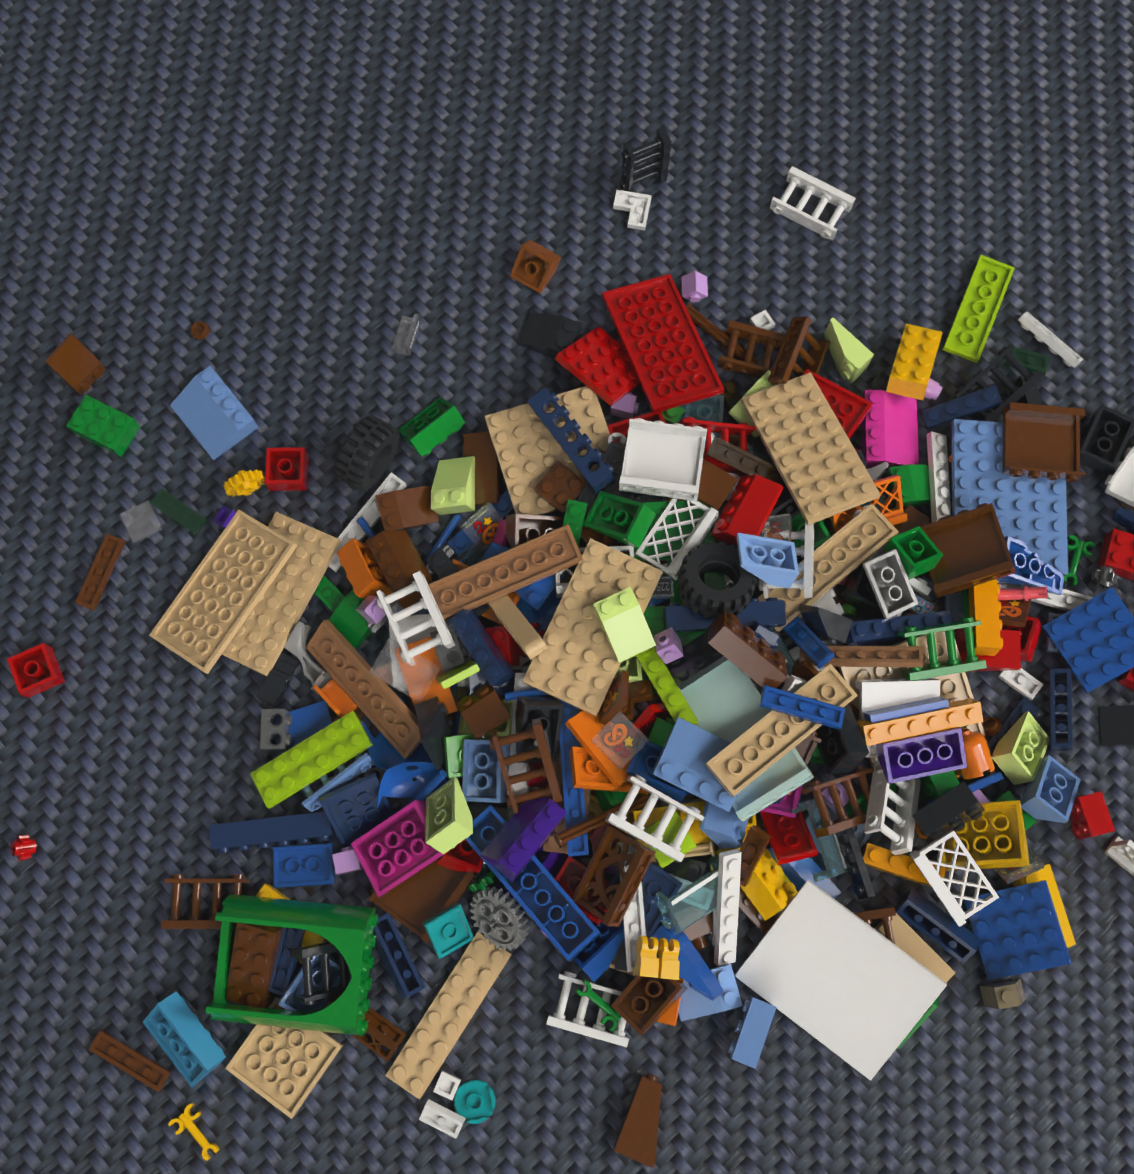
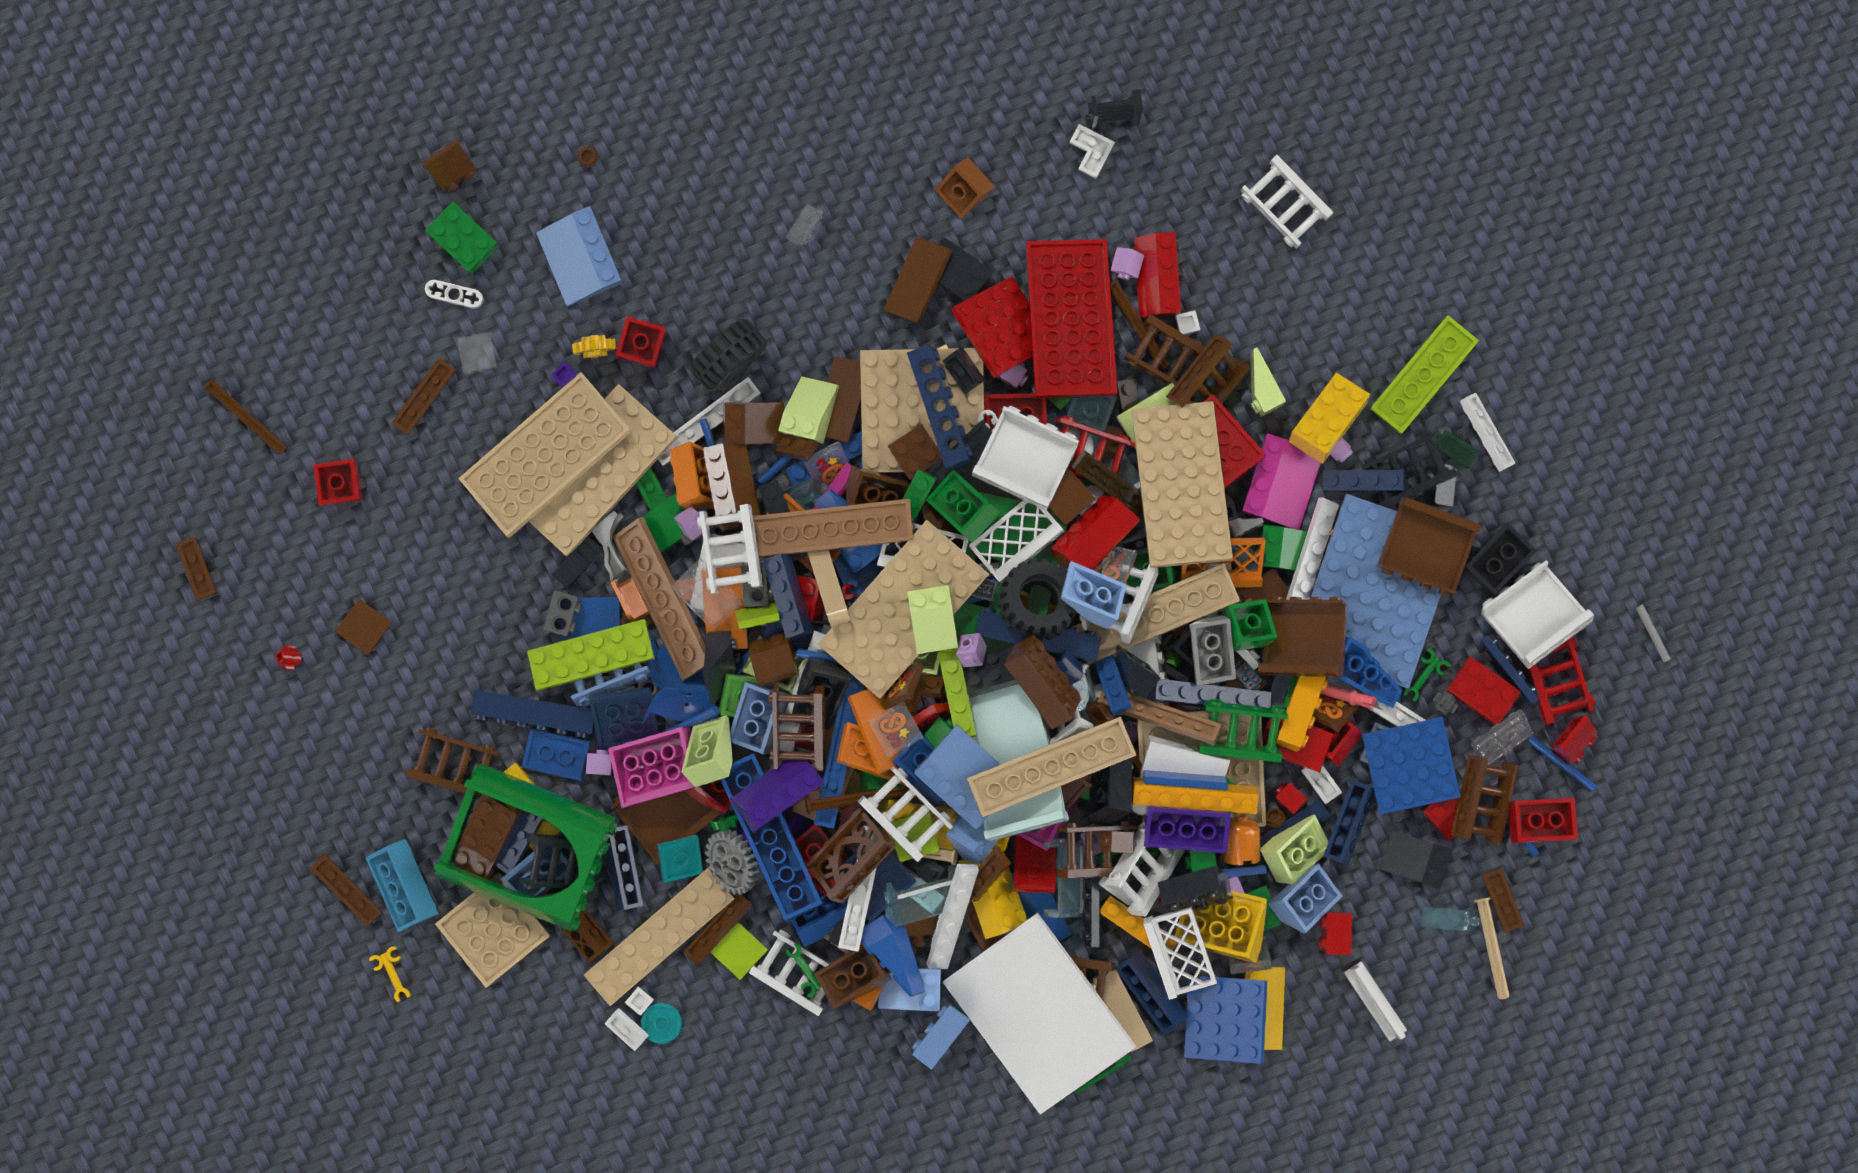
camera: 20 degrees right, 10 degrees up
(91, 797) = (363, 627): none -> reddish brown tile
(115, 481) = (438, 295): none -> white beam
(179, 511) = (518, 353): clear green tile -> none
(431, 426) = (803, 337): green slope -> none
(451, 519) = (796, 447): none -> reddish brown plate
(504, 989) = (718, 928): none -> reddish brown plate
(517, 351) = (917, 280): none -> reddish brown tile
(530, 1004) = (739, 950): none -> lime tile
(582, 406) = (963, 370): none -> black slope
(640, 1126) = (810, 1090): reddish brown slope -> none
(664, 966) = (860, 948): yellow legs -> none
(726, 291) = (1158, 275): none -> red slope
(802, 707) = (1076, 751): blue tile -> none
(861, 787) = (1117, 841): none -> brick
(874, 838) = (1119, 893): none -> white beam
(997, 703) = (1289, 797): none -> red brick
(1003, 994) = (1194, 1074): dark tan slope -> none

